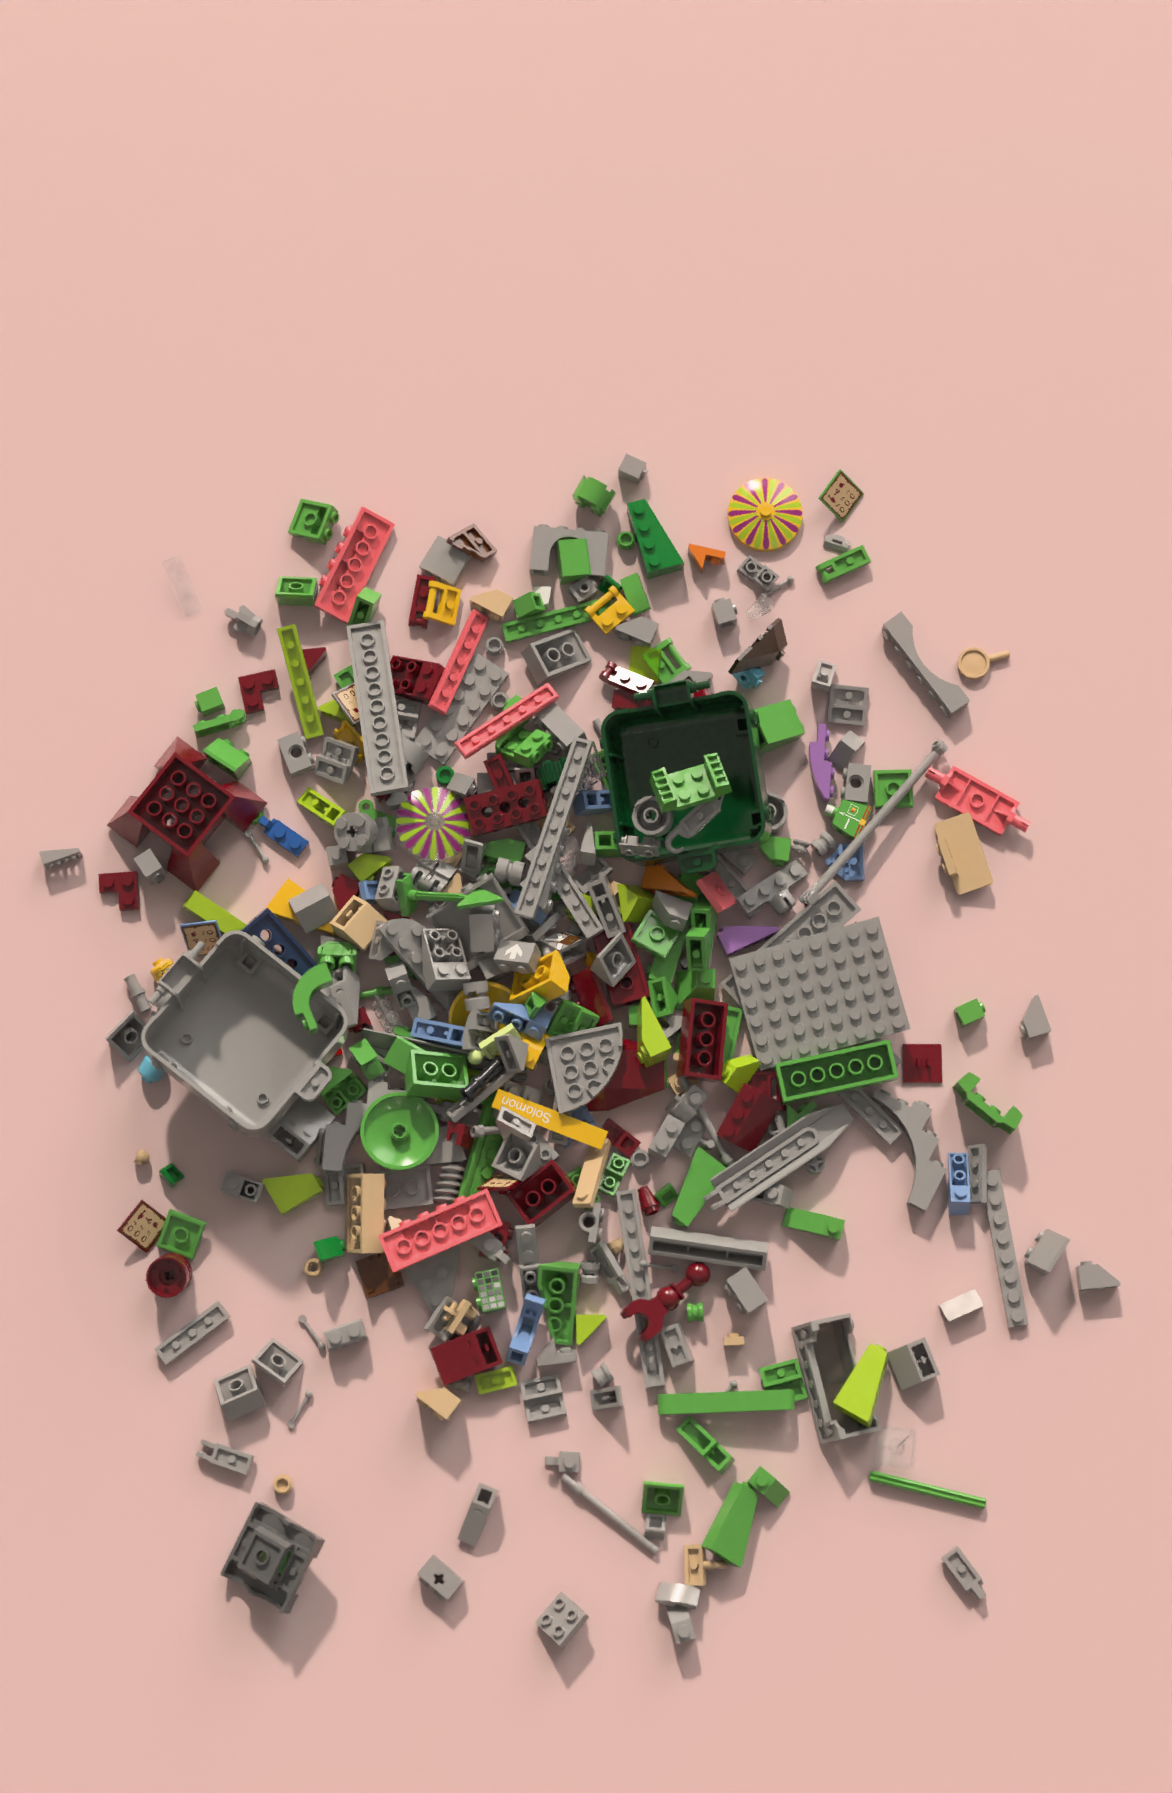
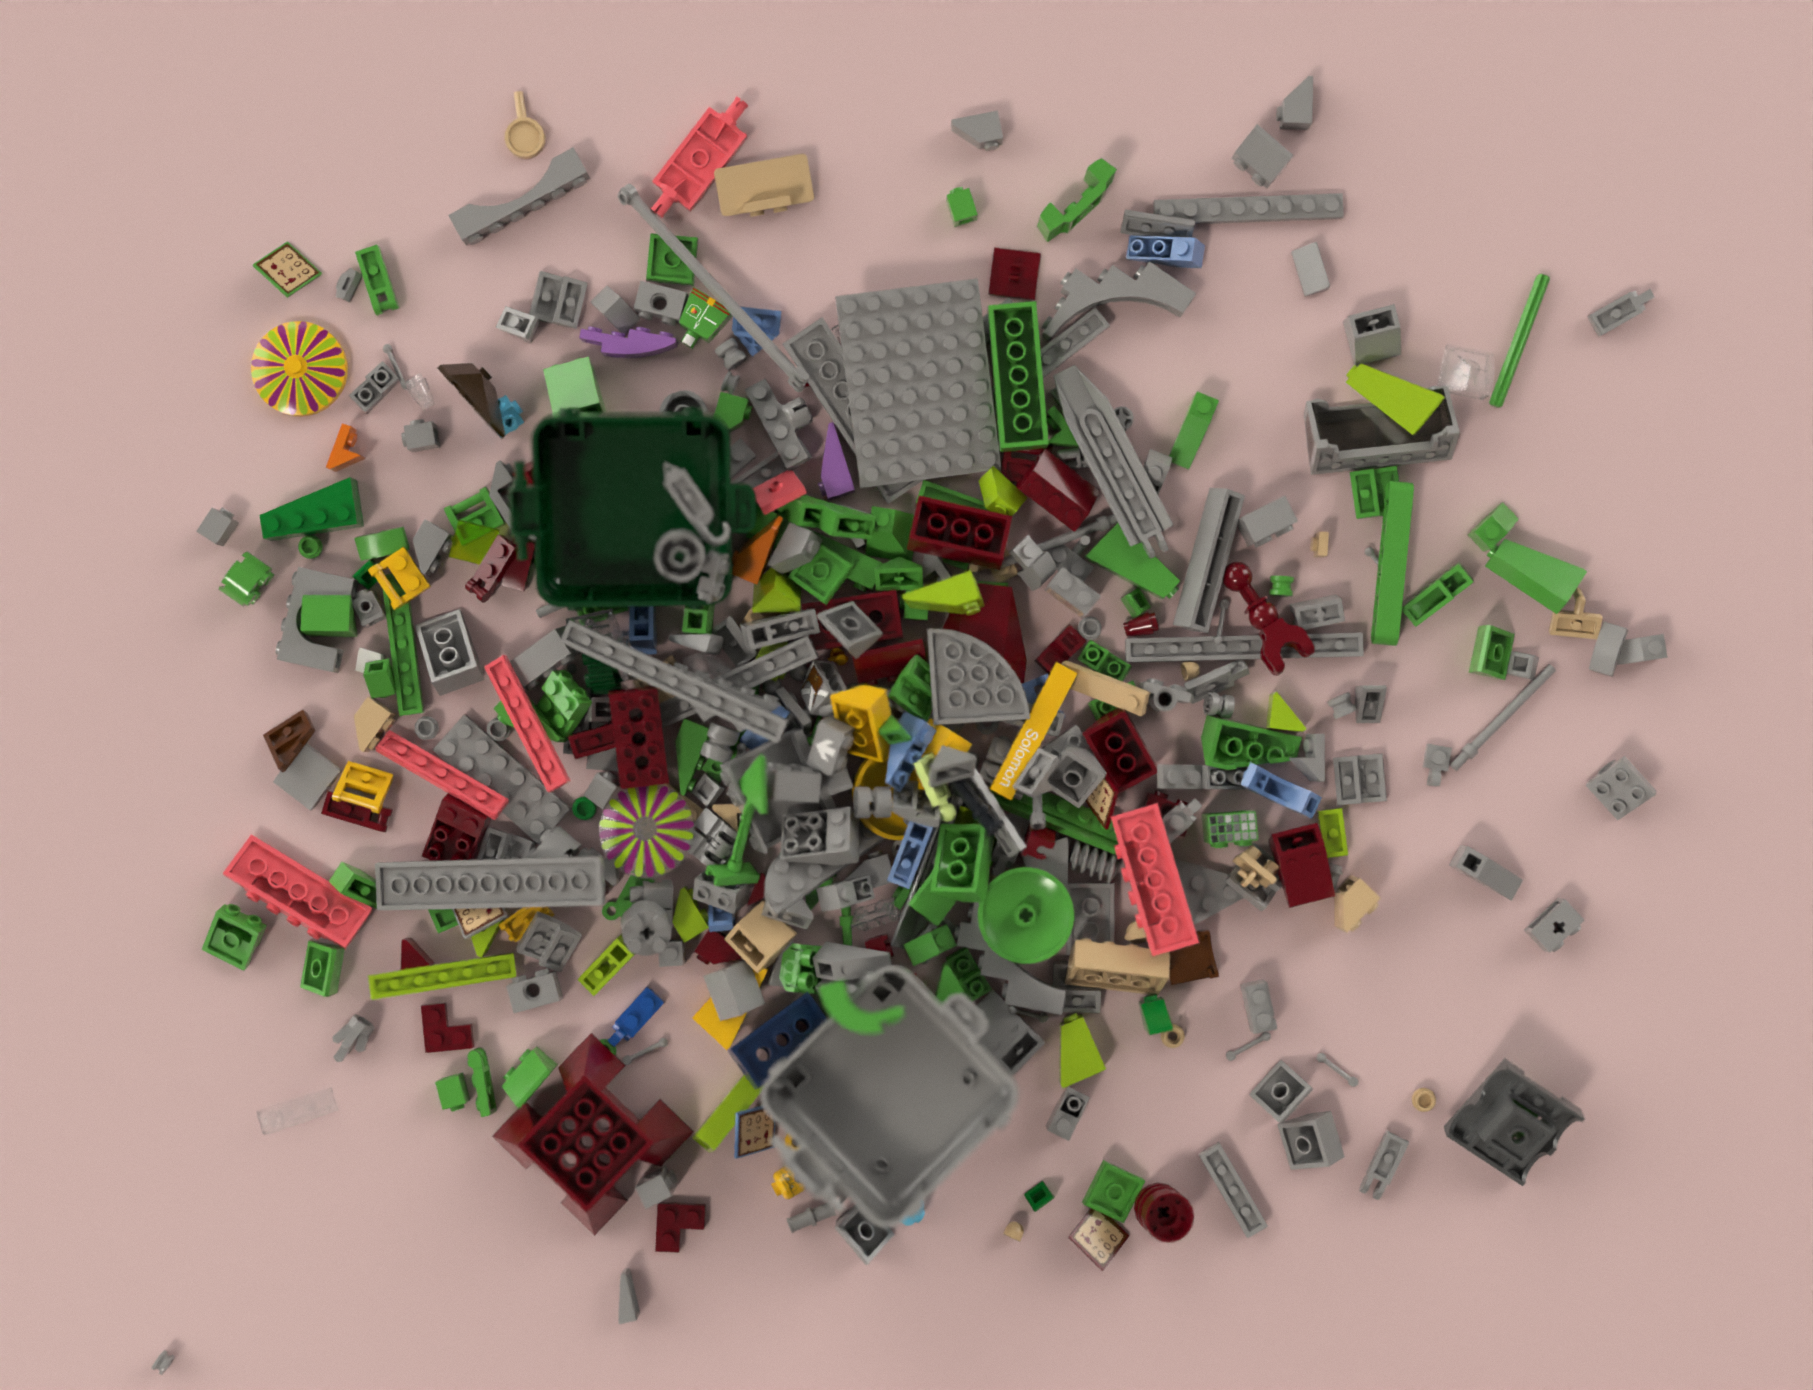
camera: 85 degrees left, 10 degrees up
(472, 856) = (693, 785): light grey slope -> none
(691, 785) = (648, 502): bright green plate -> none

